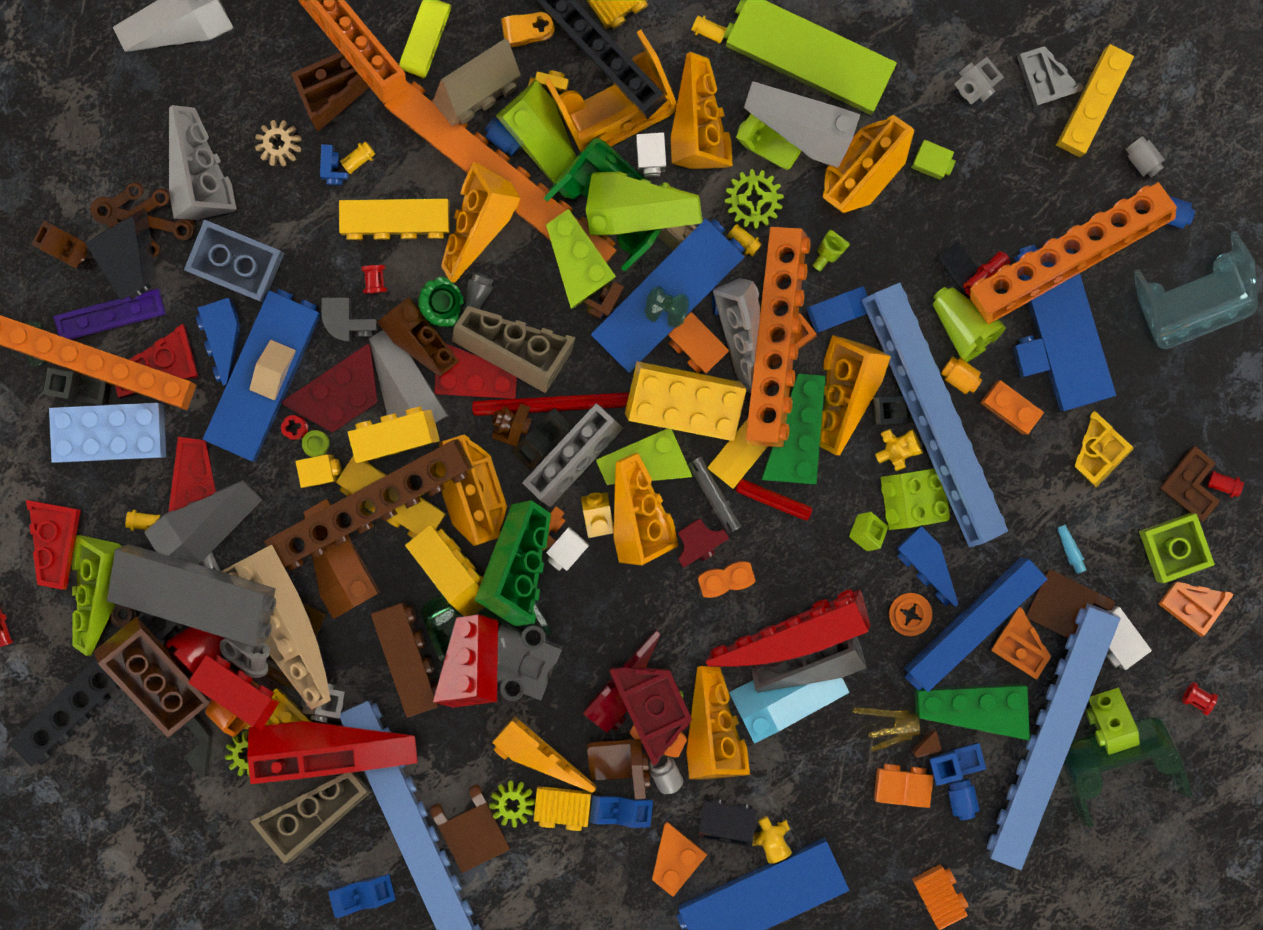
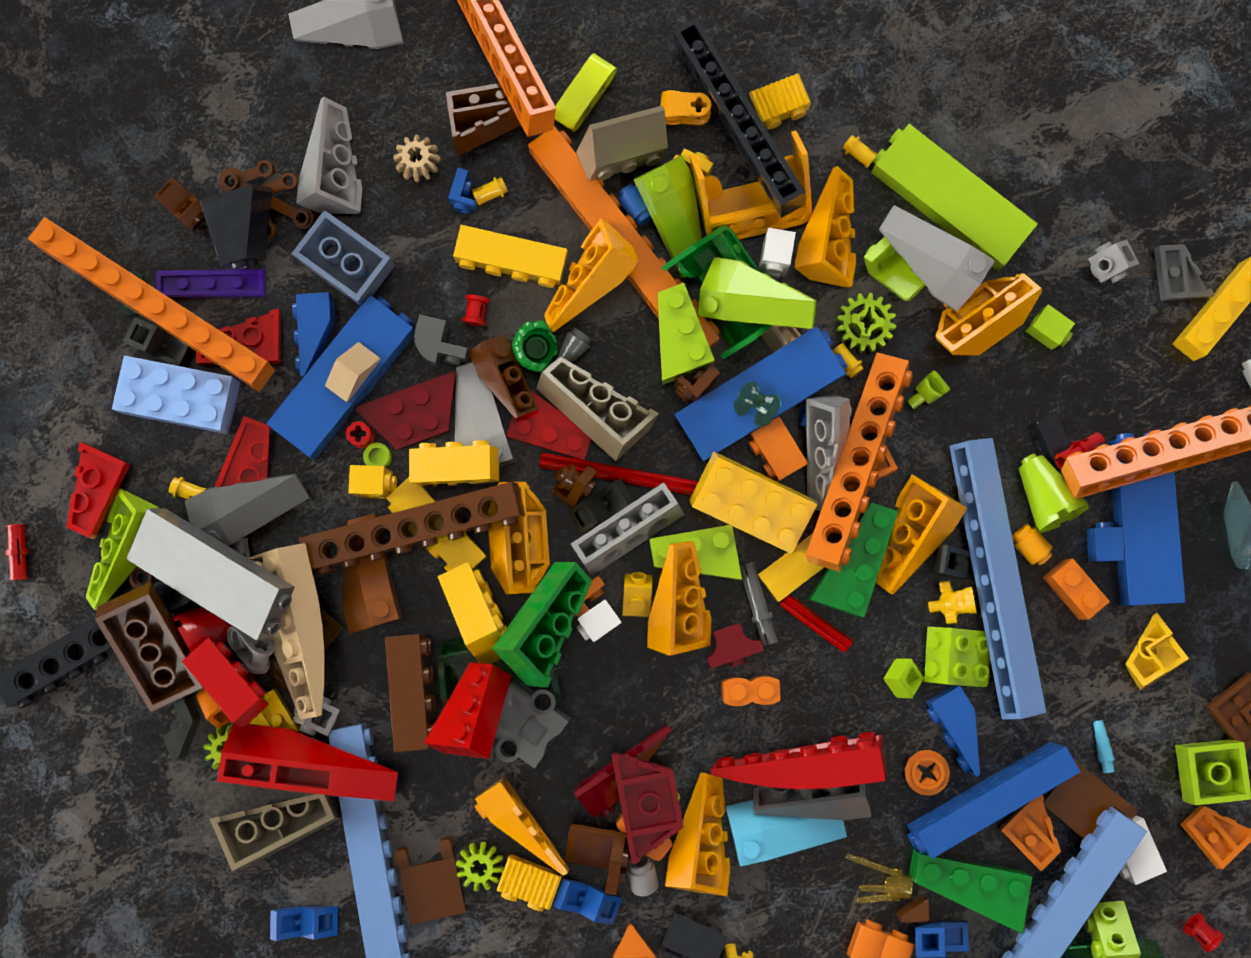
camera: 15 degrees right, 5 degrees down
(837, 310) = (923, 450): blue slope -> none

